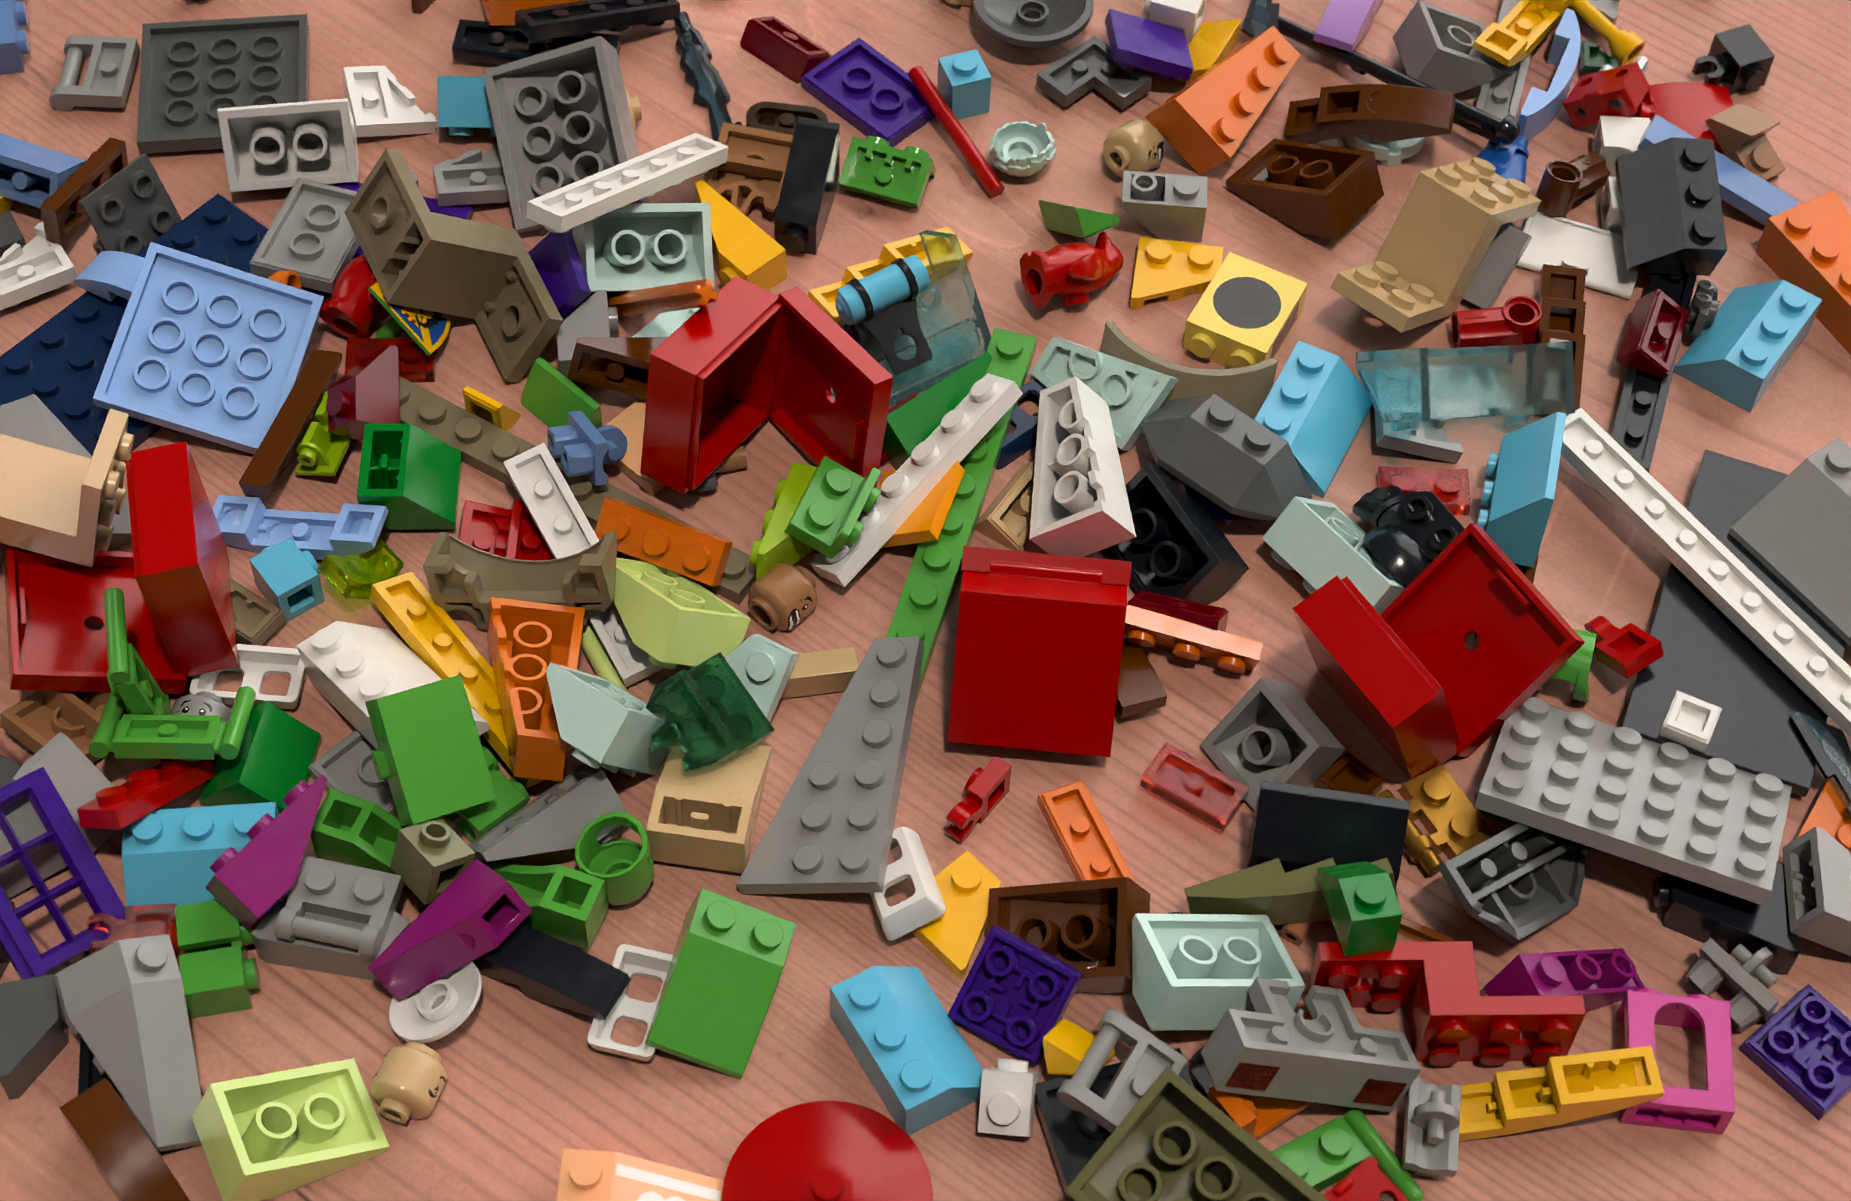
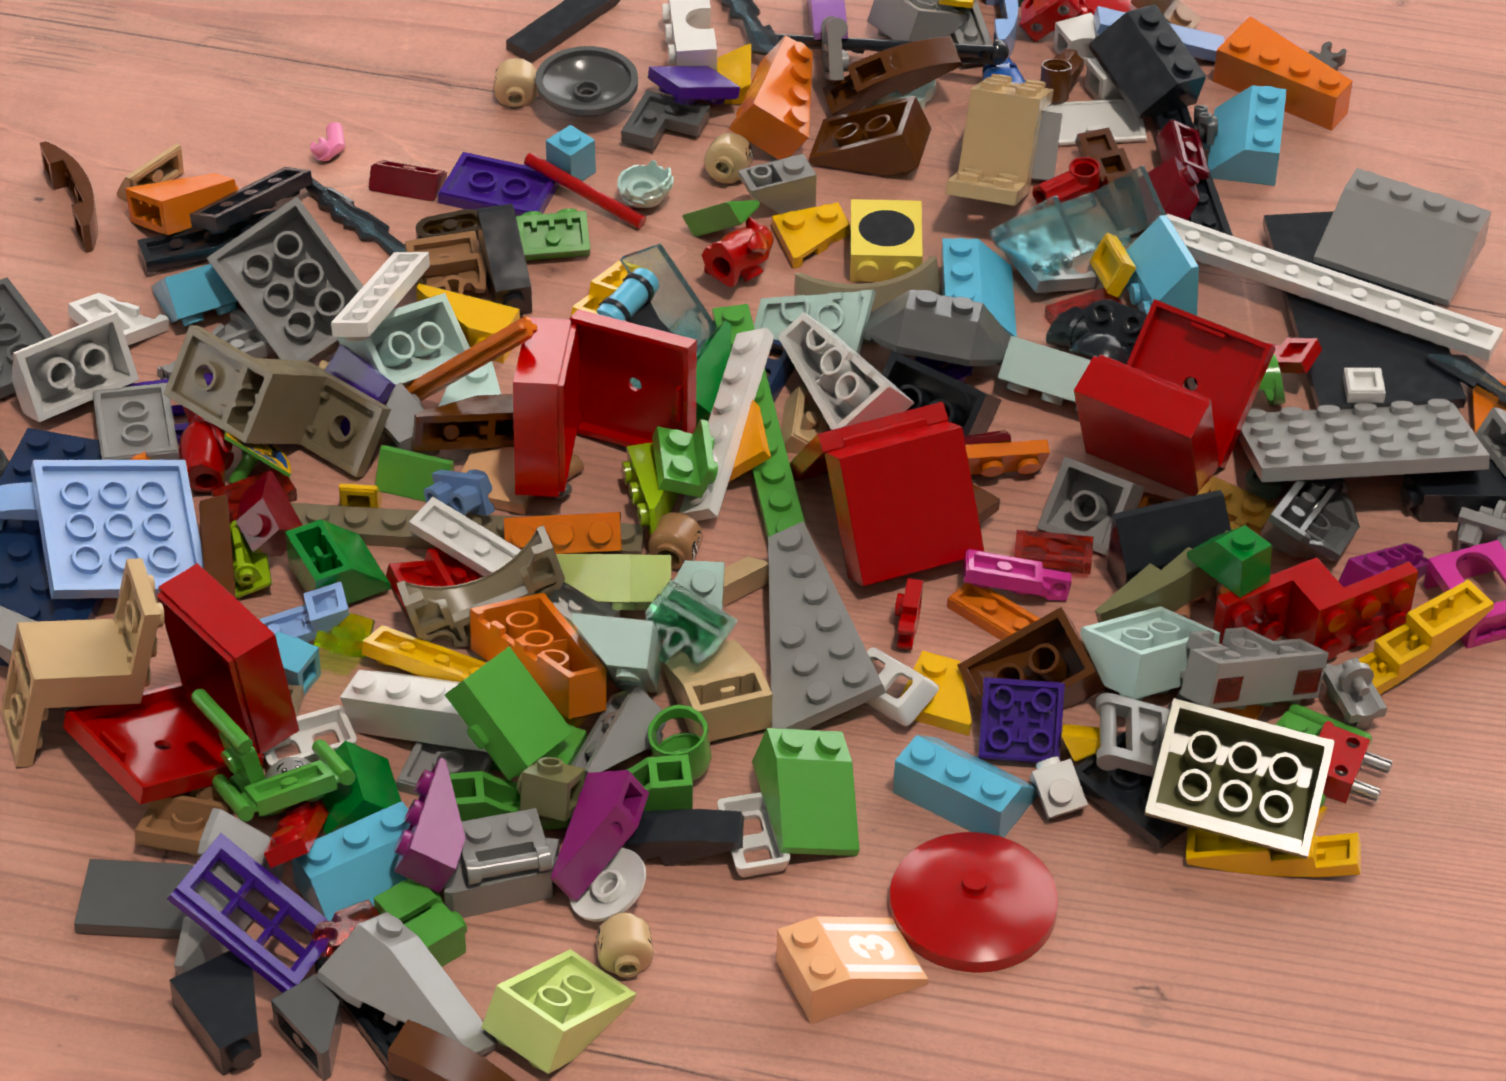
camera: 25 degrees left, 10 degrees down
(1126, 799) = (1015, 574): none -> dark pink hinge
(1318, 65) = (834, 58): none -> light grey plate
(1481, 446) = (1112, 264): none -> yellow tile
(1607, 379) = (1175, 187): none -> dark red slope

